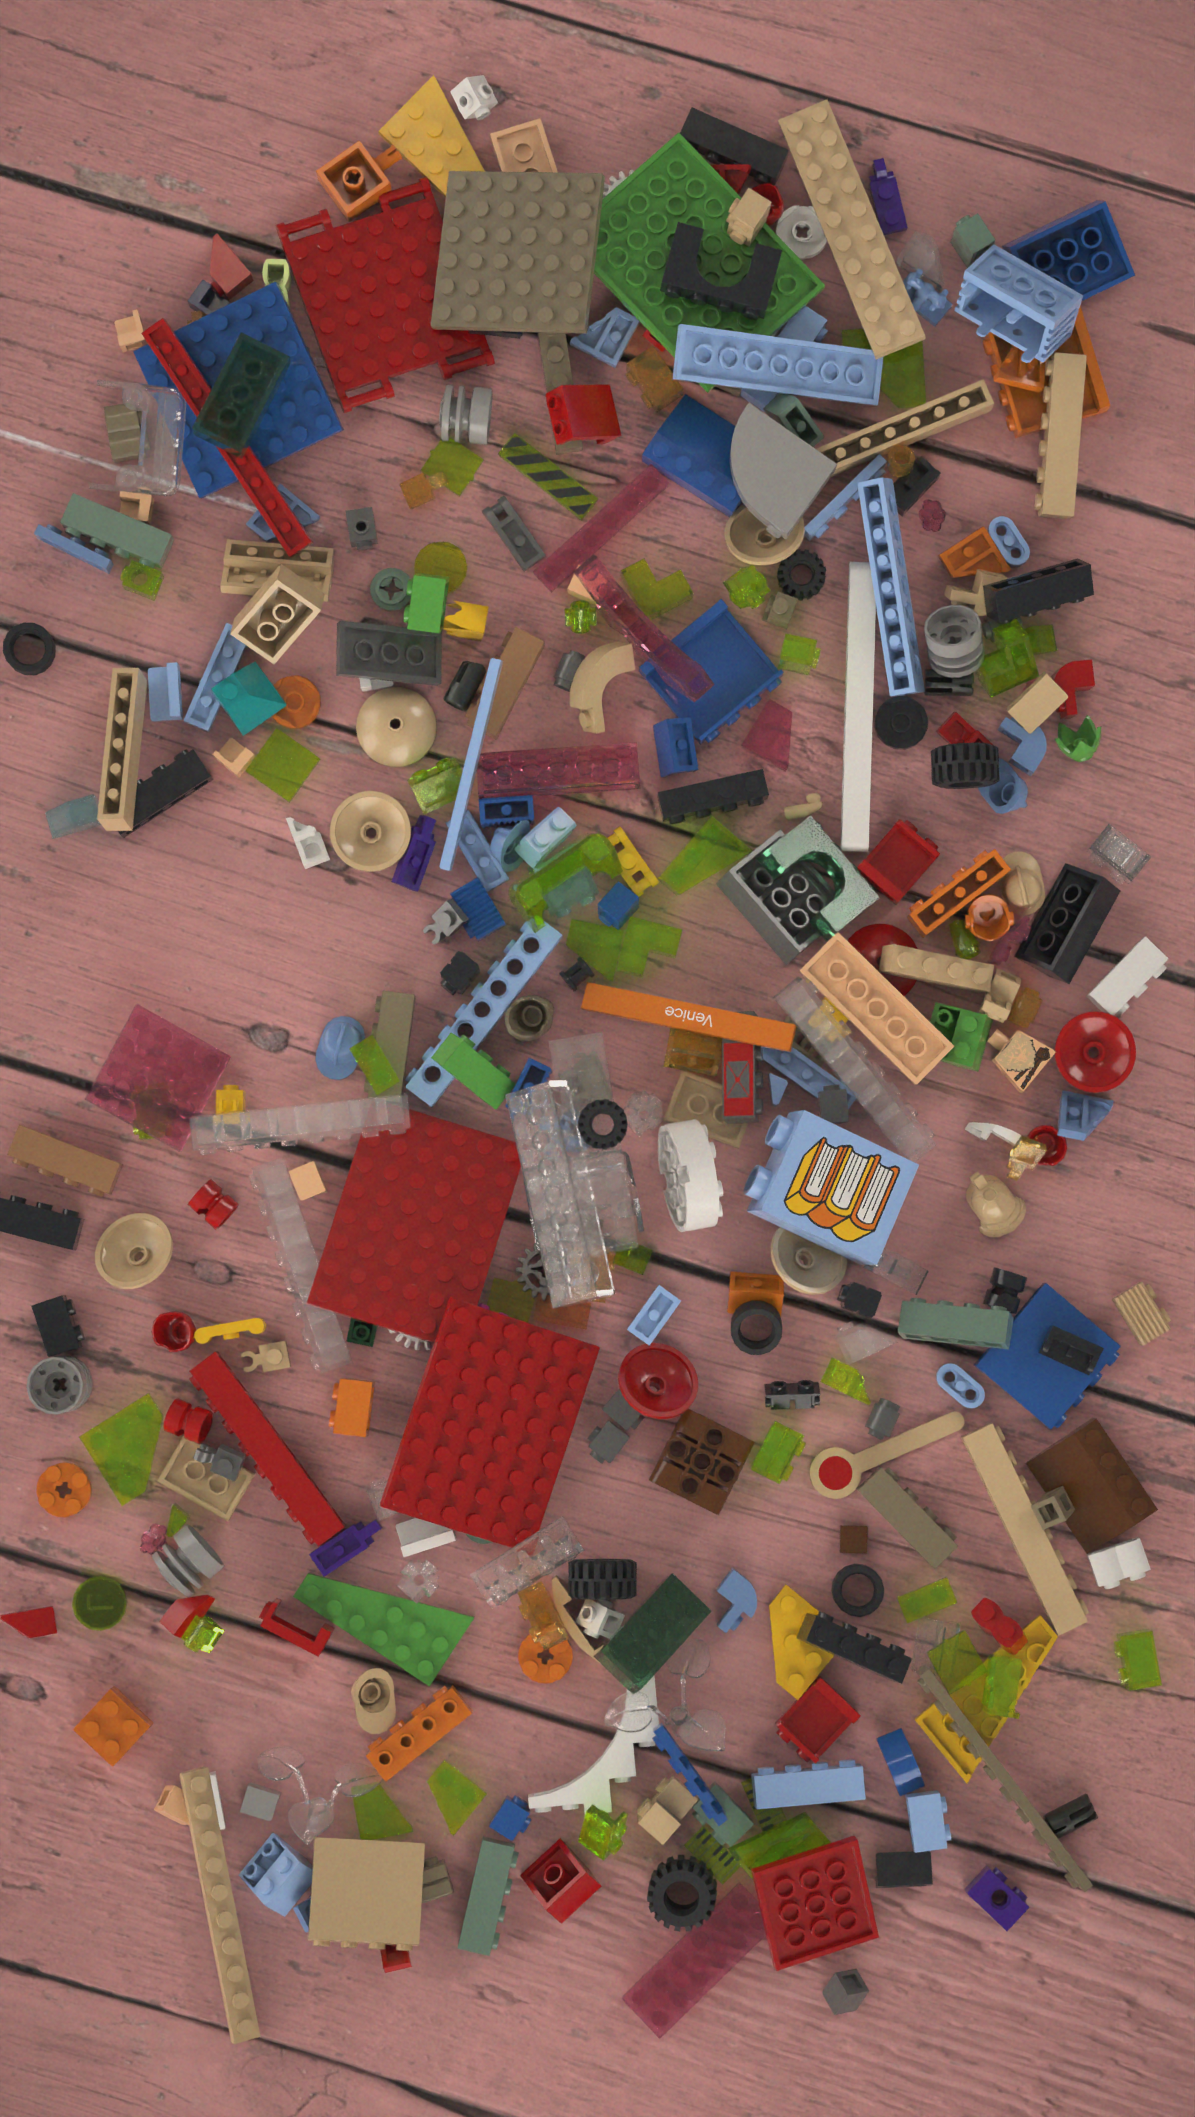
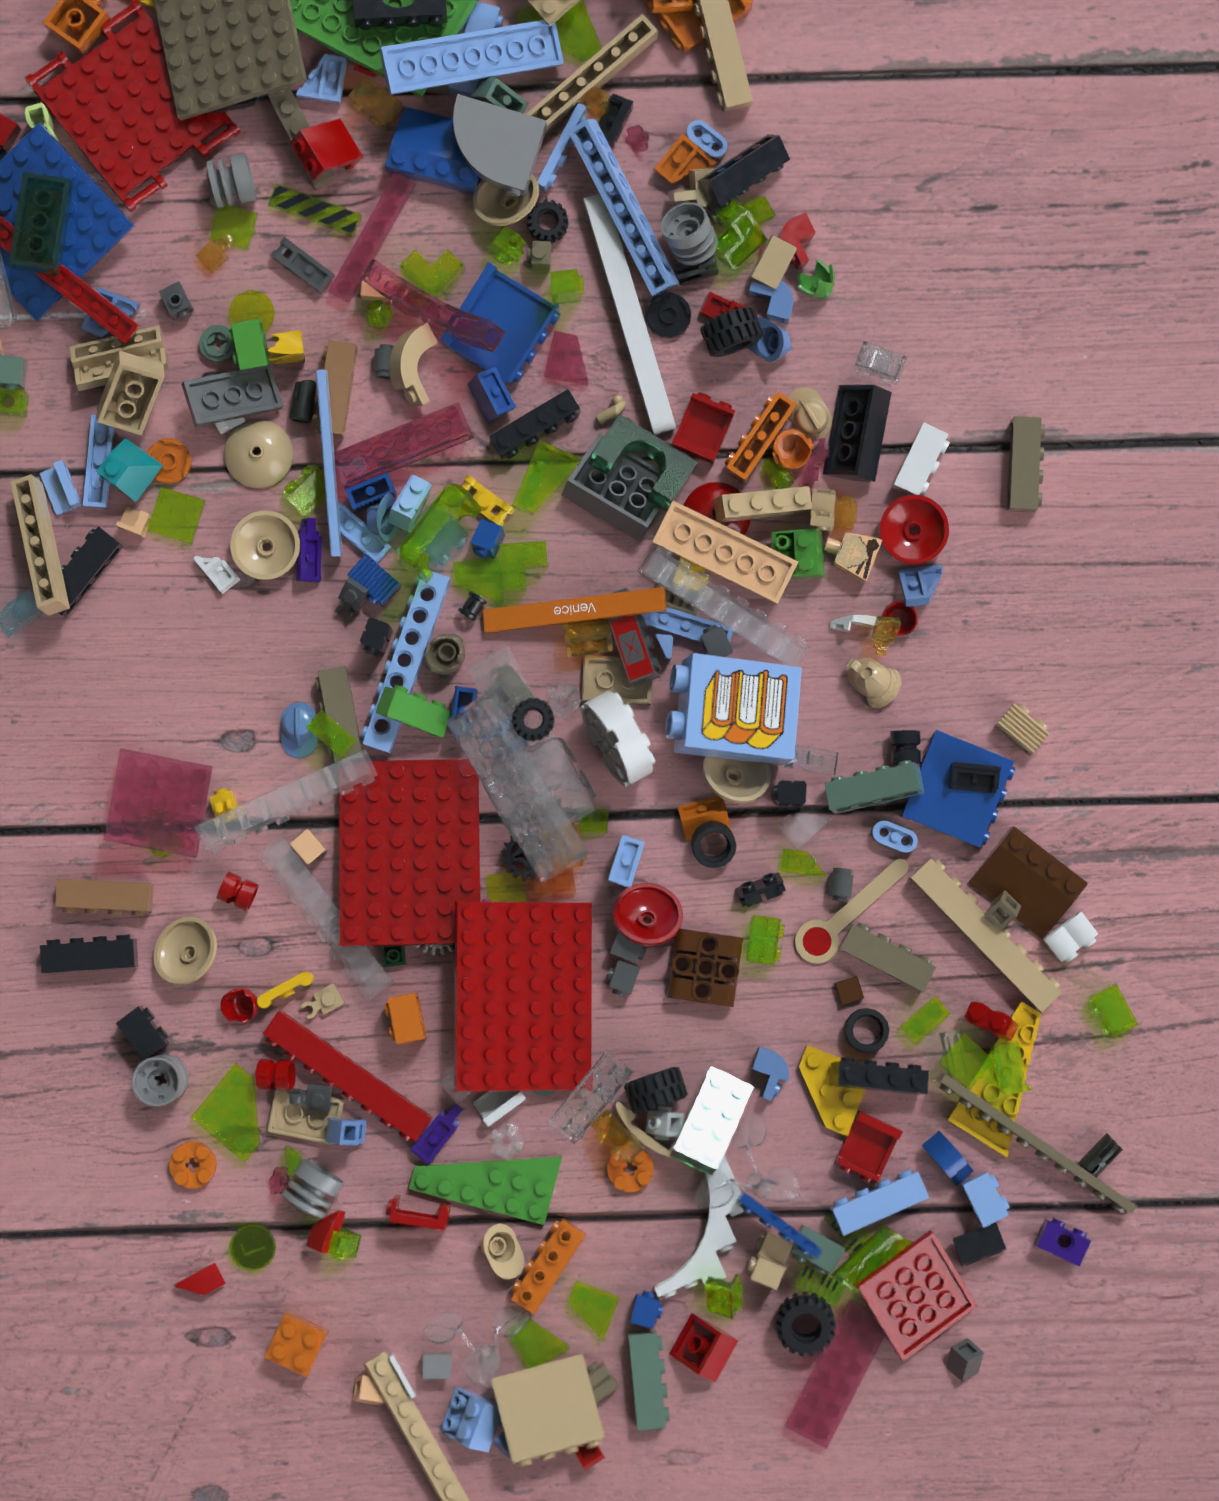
camera: 15 degrees left, 0 degrees up
(245, 1509) = (345, 1131): none -> medium blue brick

